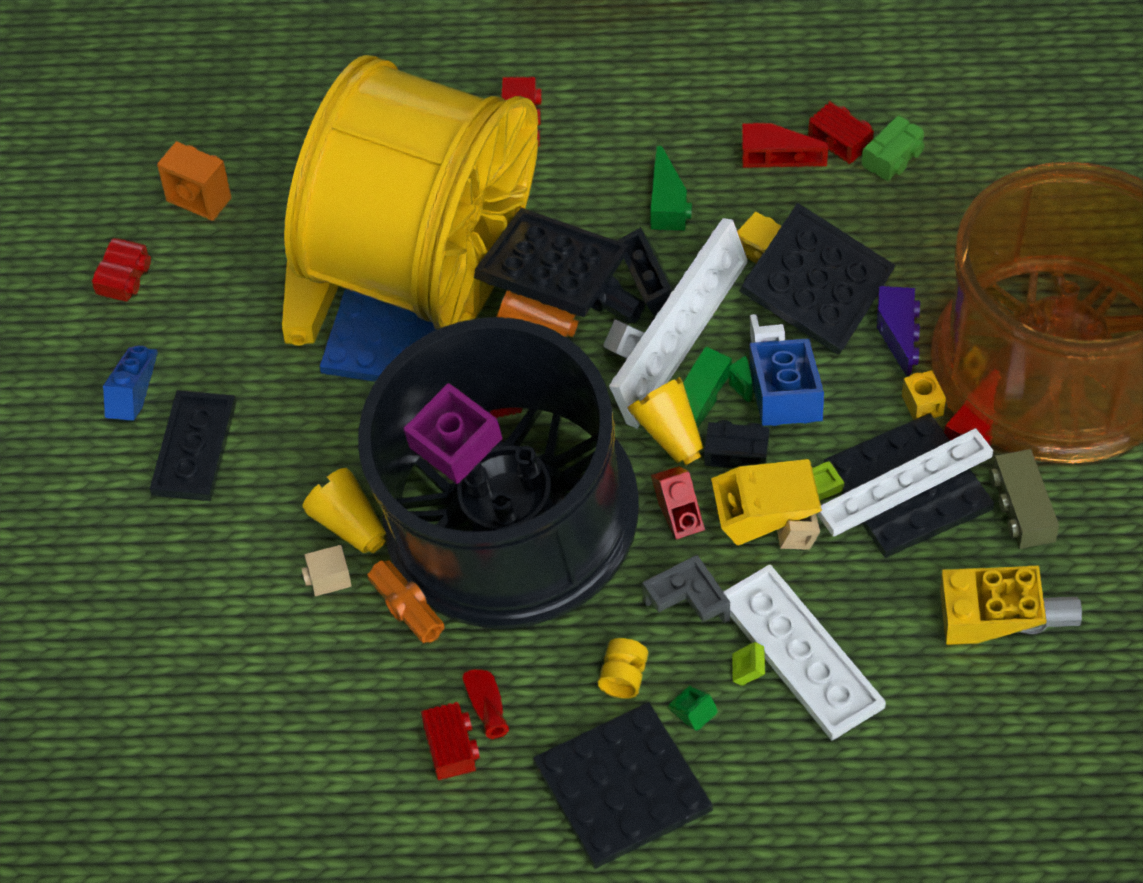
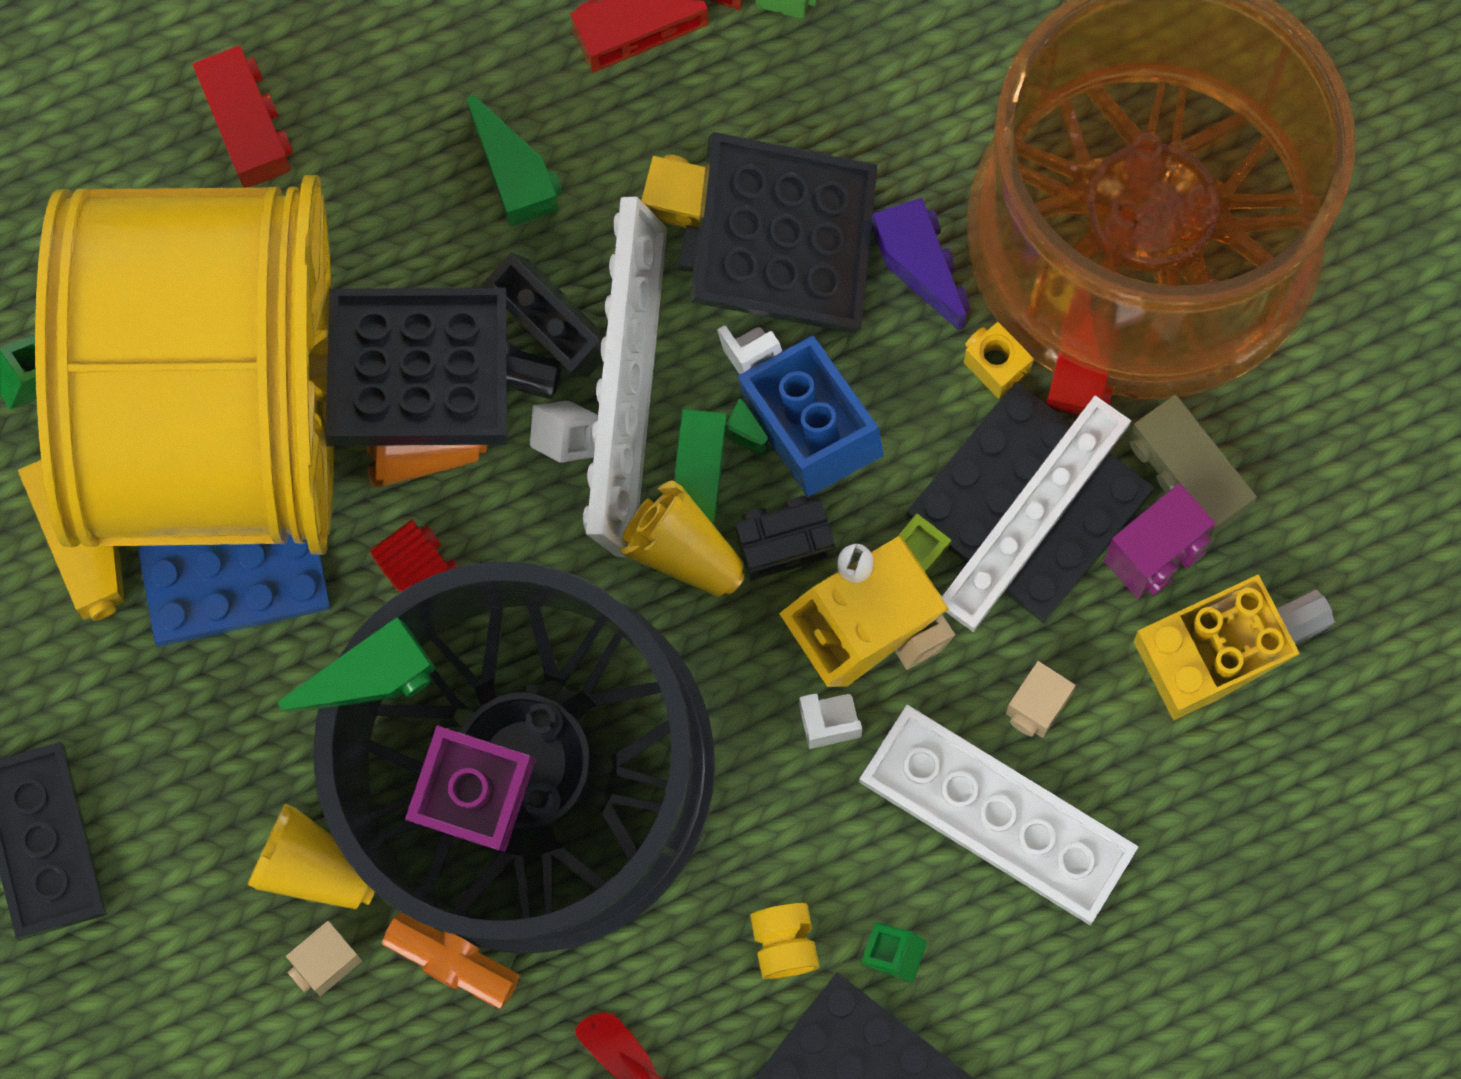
camera: 25 degrees left, 20 degrees up
(423, 351) = (373, 670): none -> green slope
(678, 501) = (743, 656): red slope -> none
(691, 582) = (816, 782): dark grey panel -> none
(718, 560) = (829, 720): none -> white panel
(748, 663) = (941, 863): lime plate -> none
(775, 464) = (864, 566): none -> white hinge
(859, 594) = (1039, 700): none -> tan brick
(981, 527) = (1159, 542): none -> magenta brick

